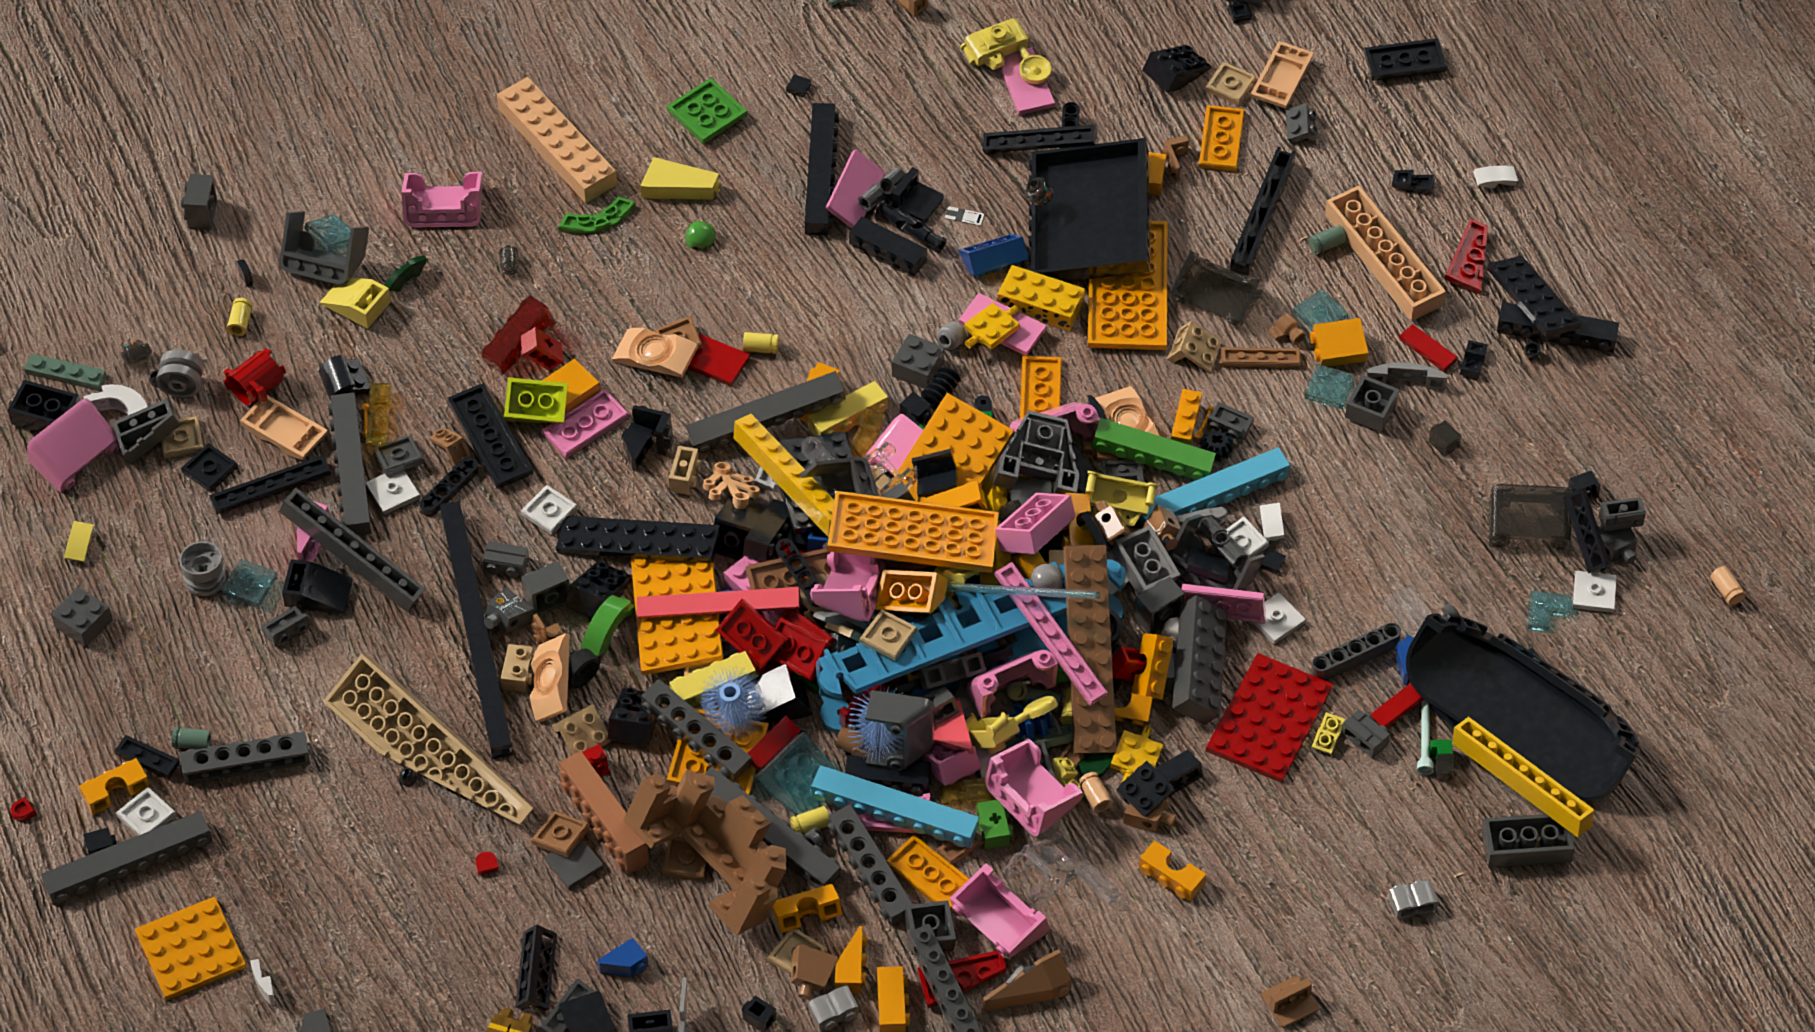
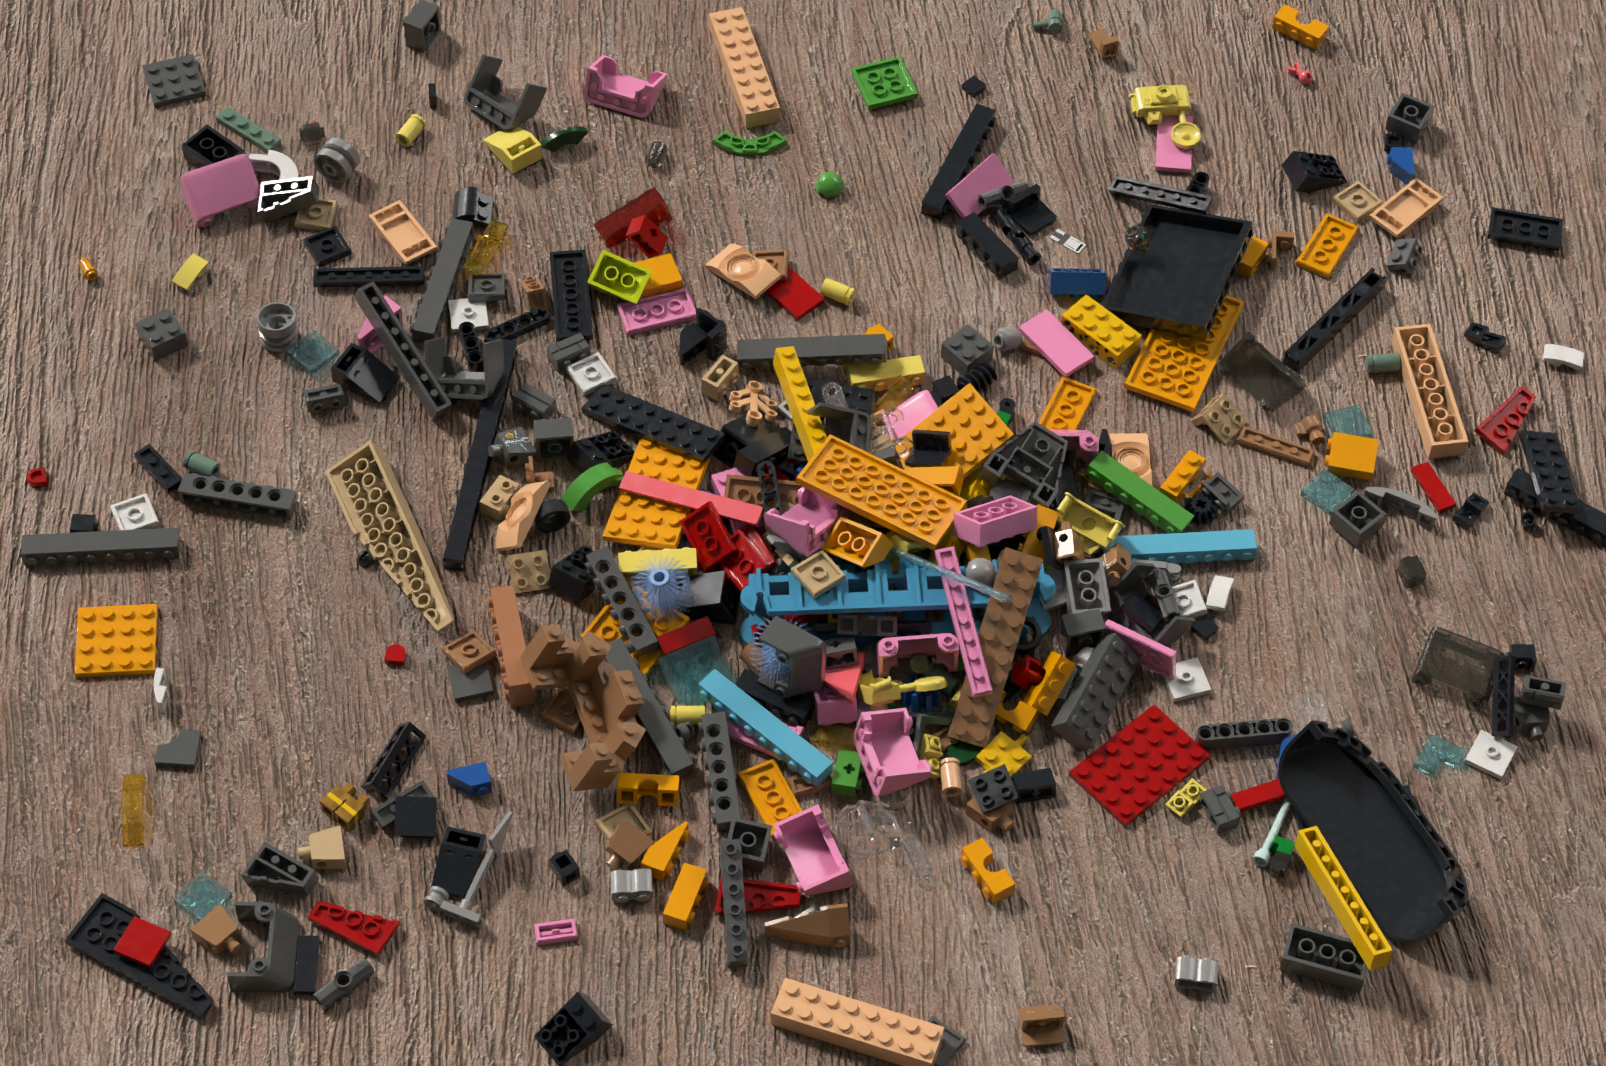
camera: 20 degrees right, 0 degrees up
(127, 776) = (104, 482): light orange arch -> none
(254, 378) = (397, 183): red container -> none
(329, 231) = (515, 82): clear light blue plate -> none
(421, 531) = (471, 347): none -> black beam
(428, 562) = (463, 383): none -> dark grey windscreen
(516, 495) = (568, 351): none -> dark grey brick
(598, 759) = (527, 600): red brick -> none
(679, 181) = (831, 134): light yellow slope -> none
(991, 326) = (1044, 341): yellow plate -> none
(1258, 31) = (1401, 163): none -> blue slope

